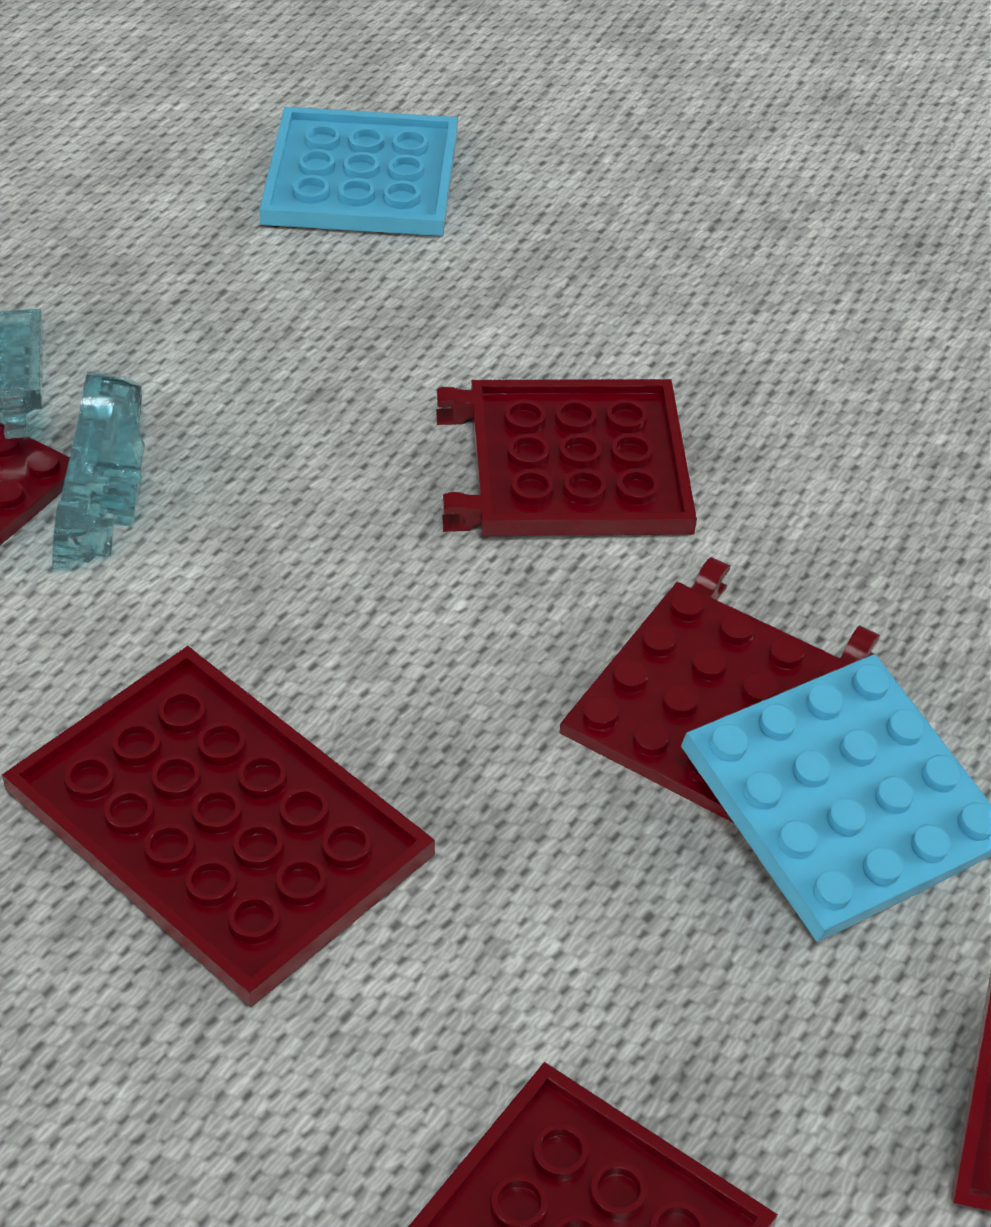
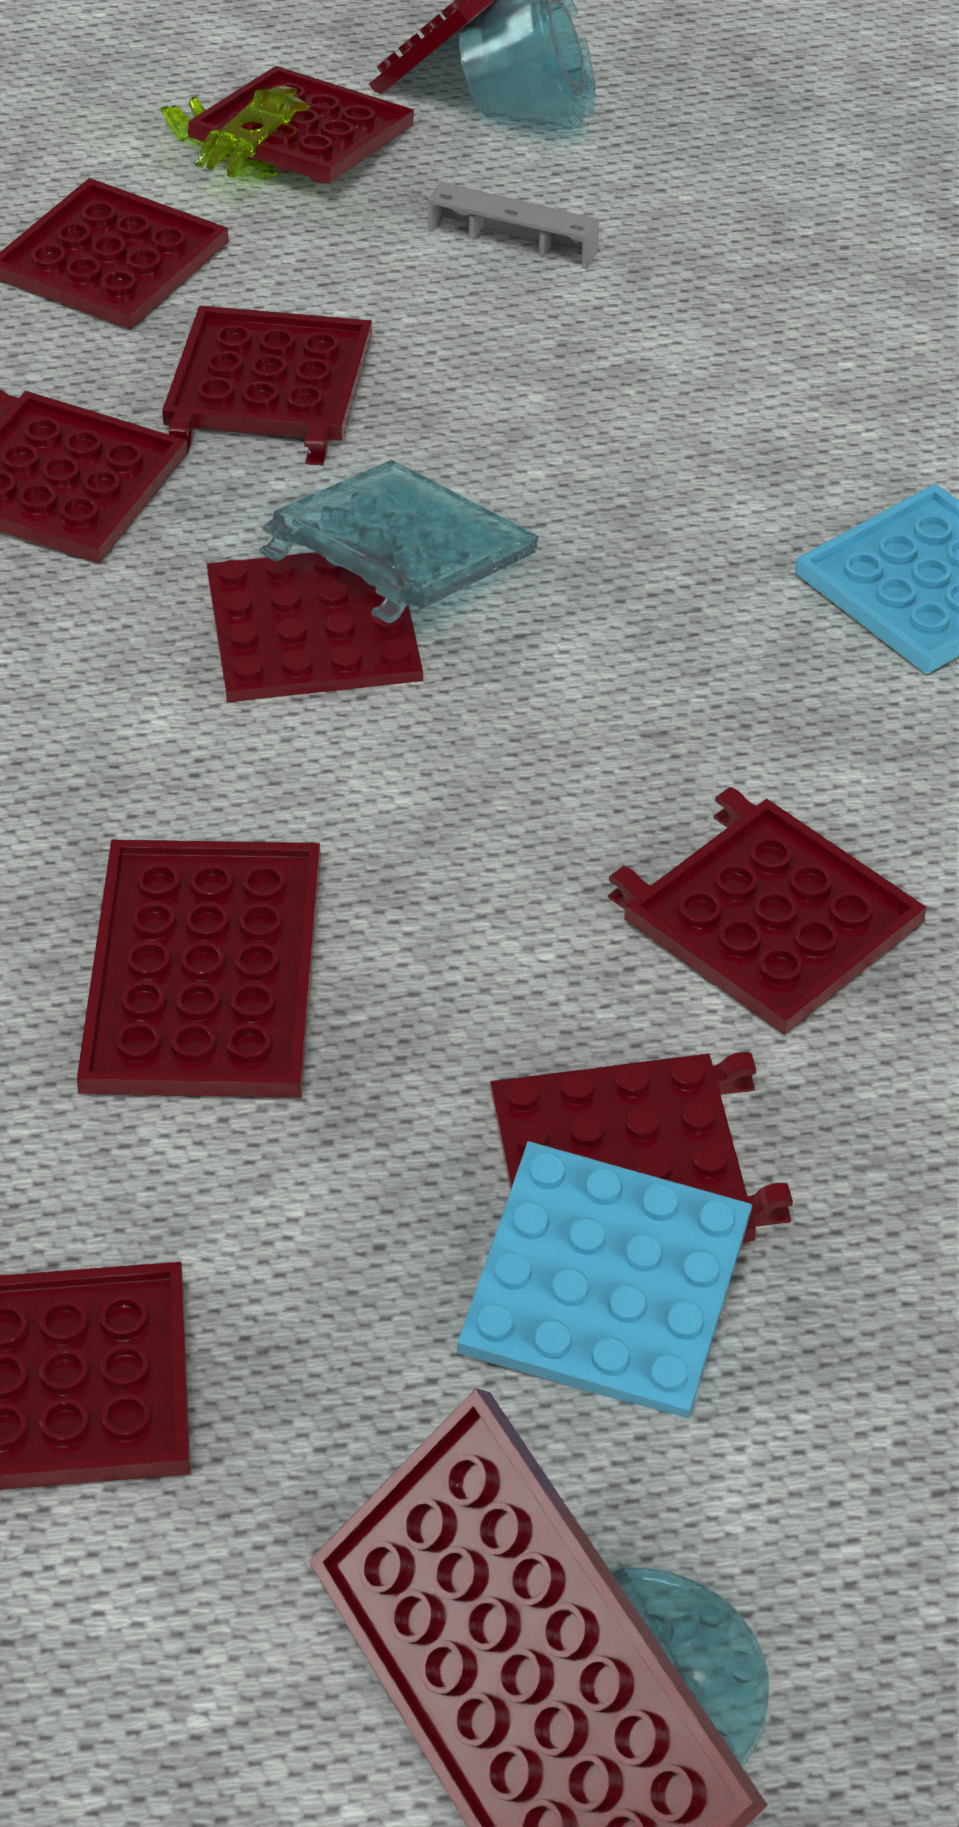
camera: 50 degrees right, 0 degrees up
(101, 471) = (420, 681): clear light blue piece -> none

